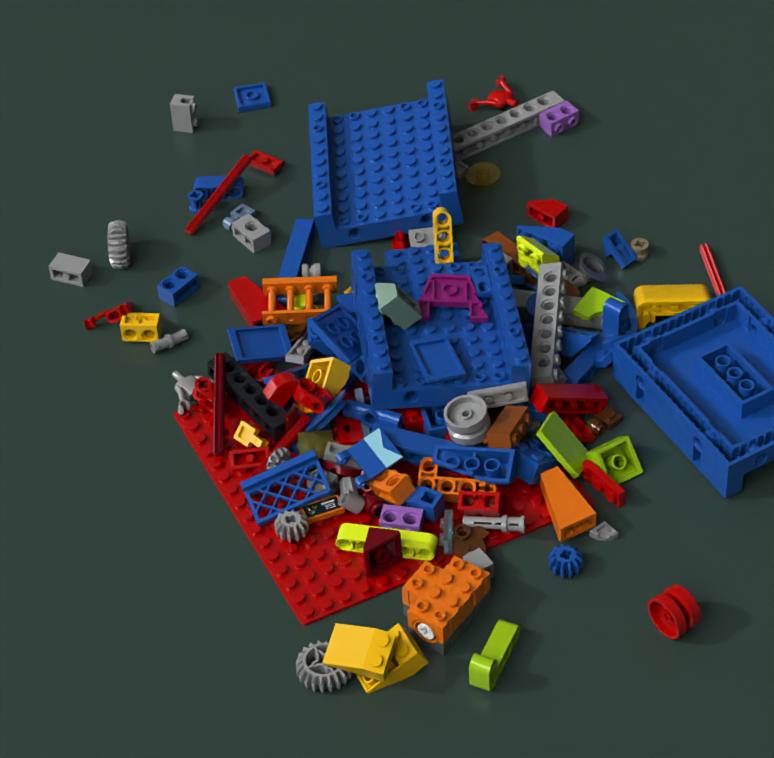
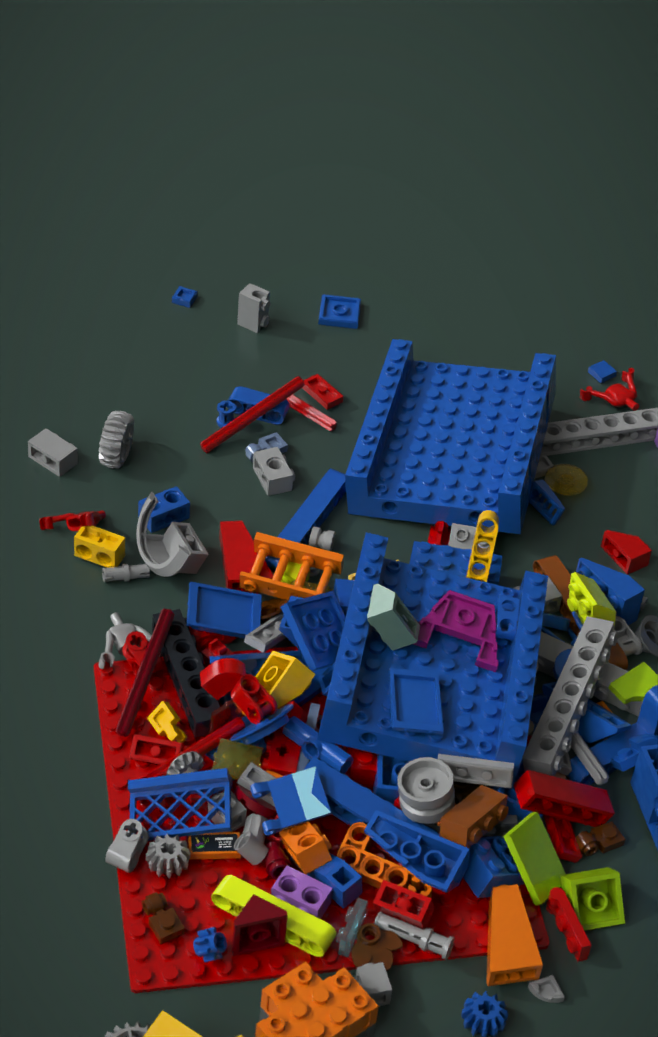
camera: 10 degrees right, 0 degrees up
(121, 121) = (184, 296): none -> blue tile
(200, 313) = (174, 551): none -> light grey piece
(258, 530) = (127, 848): none -> light grey piece
(264, 181) = (312, 413): none -> red axle
(307, 572) = (164, 924): none -> reddish brown plate
(348, 574) = (210, 944): none -> blue gear
(467, 184) = (537, 502): none -> blue slope
(479, 84) = (602, 371): none -> blue tile
(577, 367) = (589, 760): none -> light grey axle

